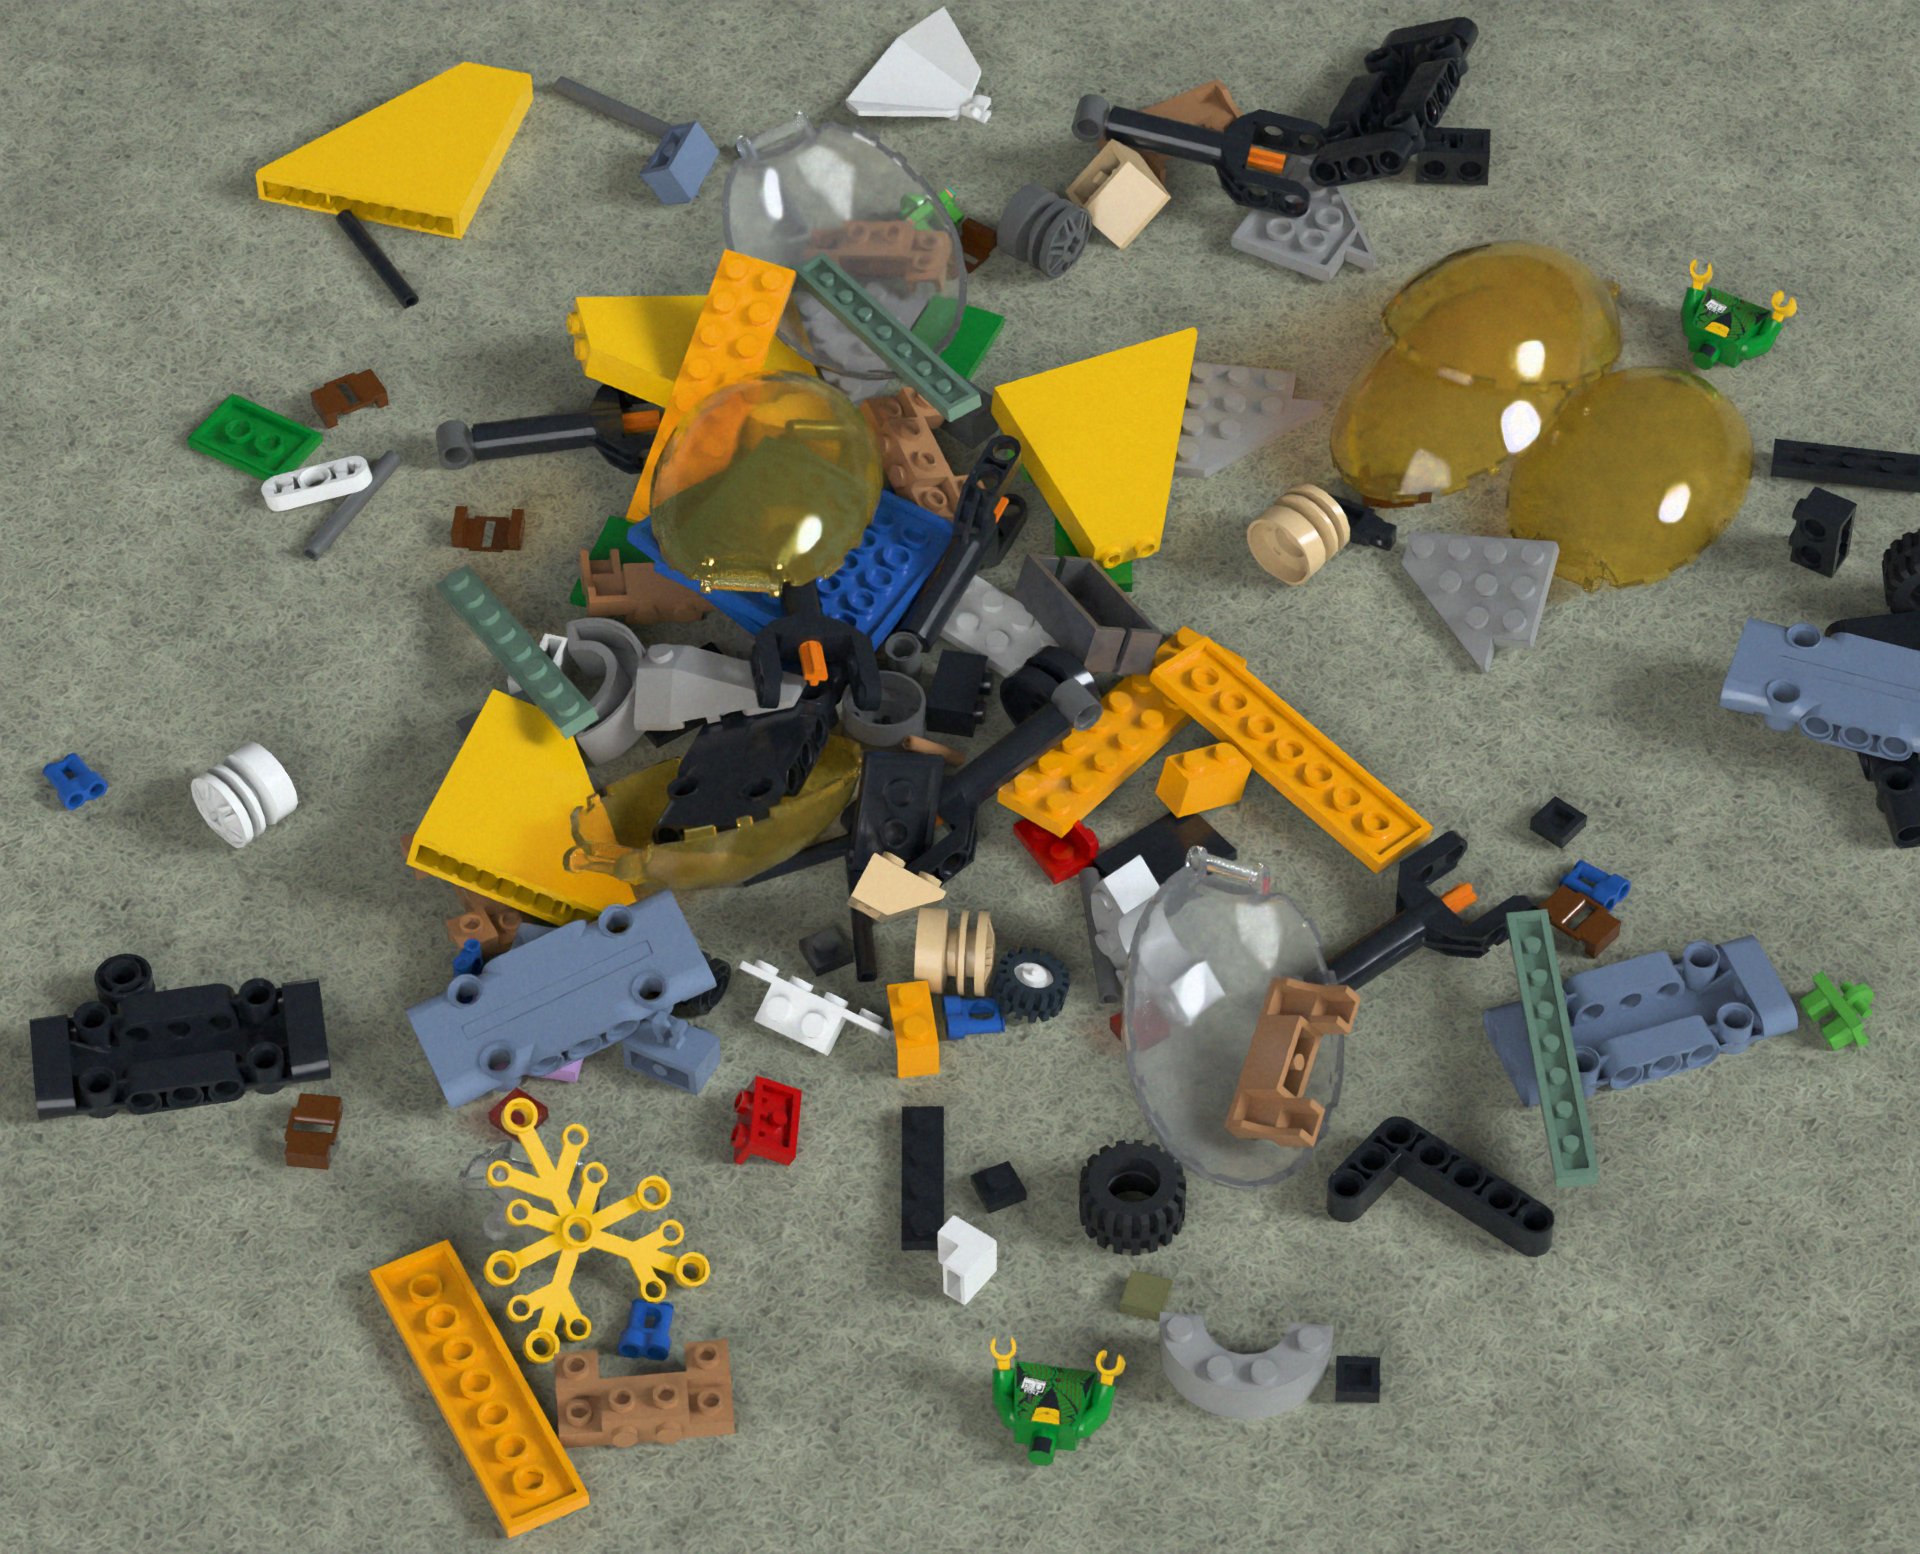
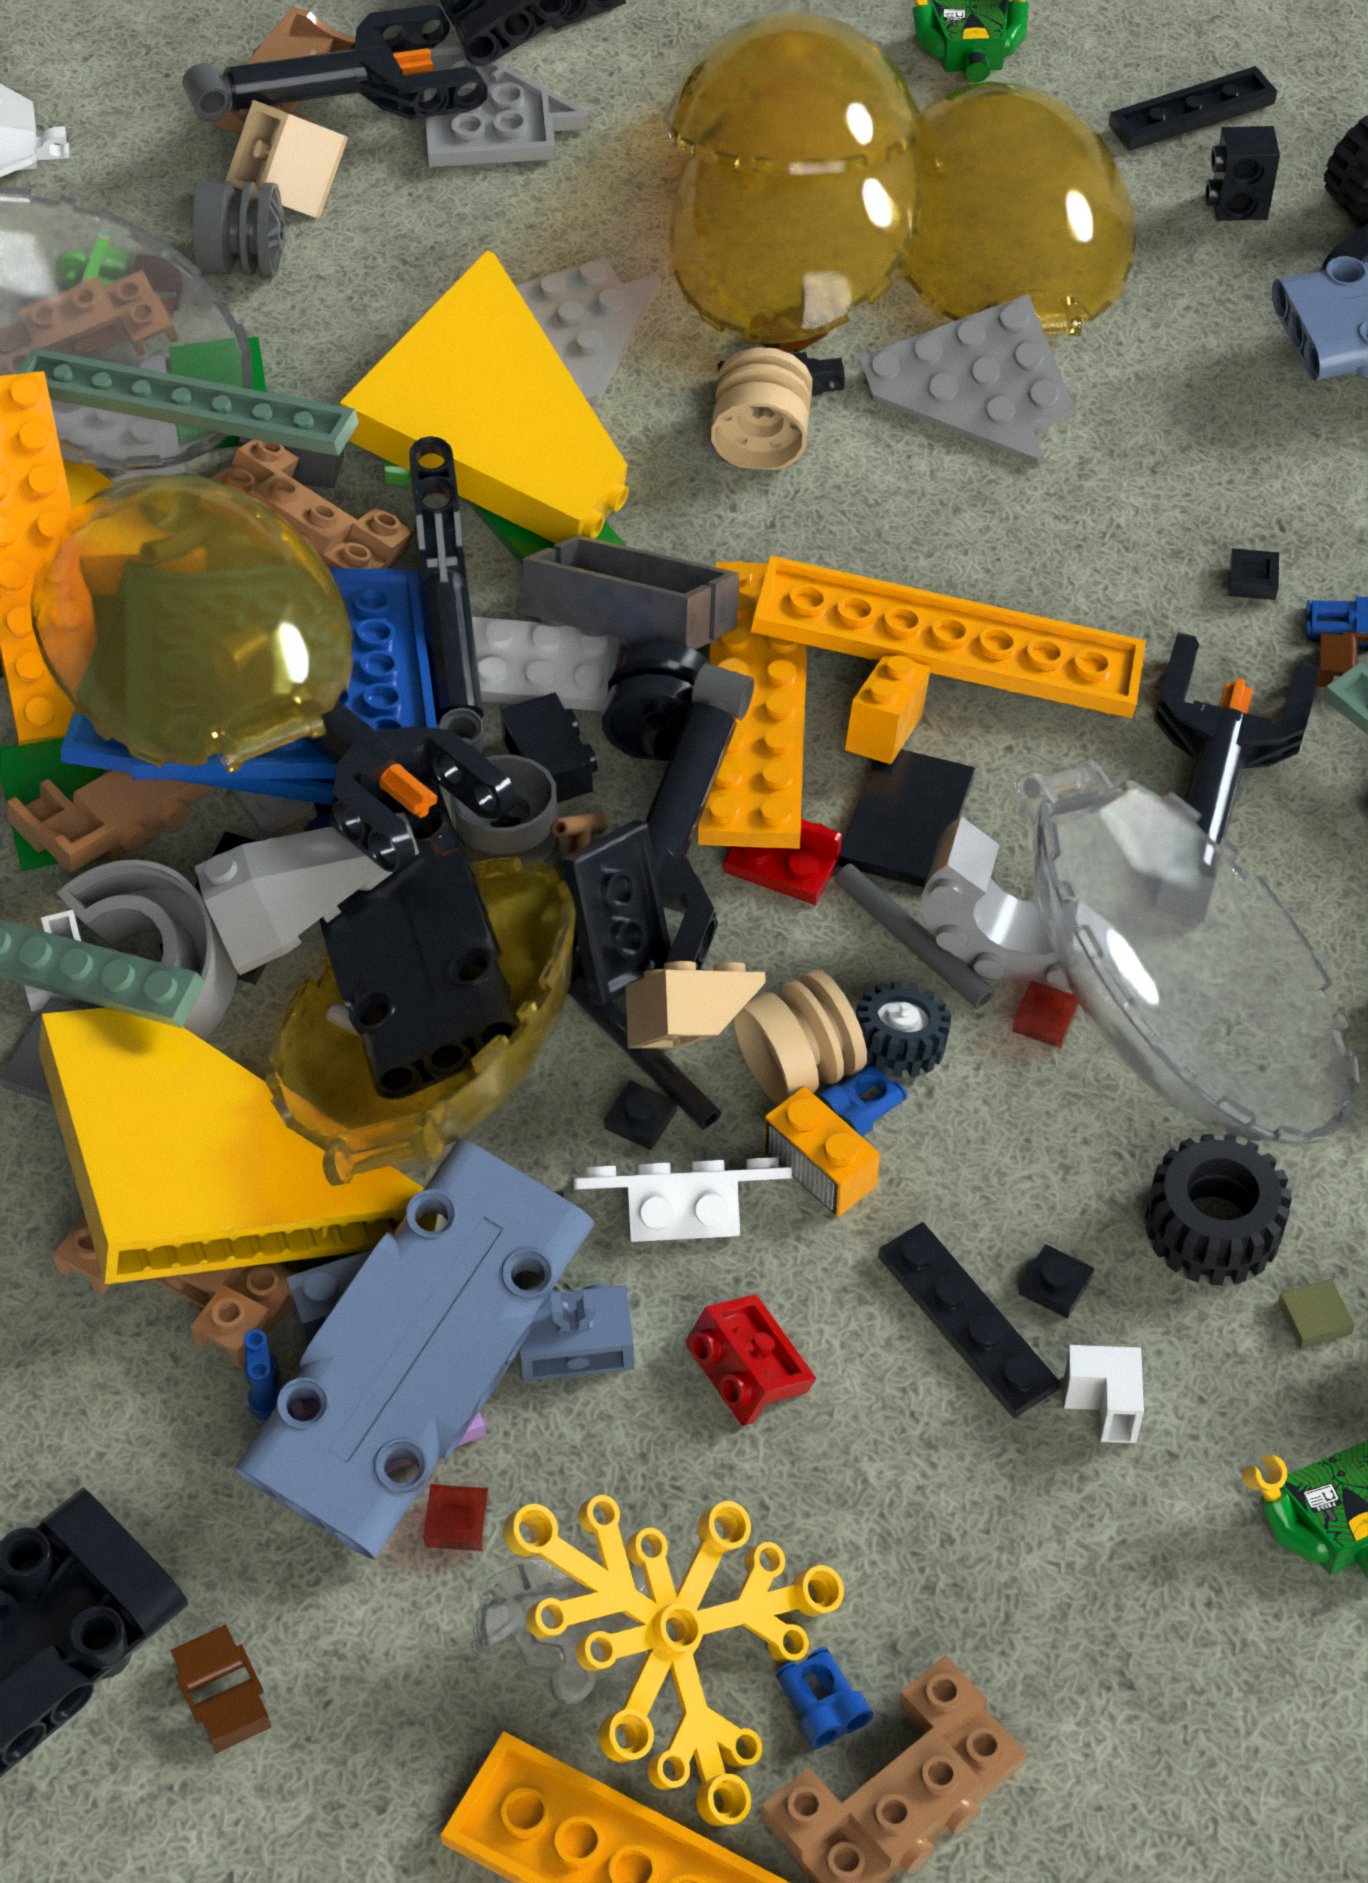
camera: 35 degrees left, 5 degrees up
(1281, 1058) = (1247, 970): medium nougat bracket -> none

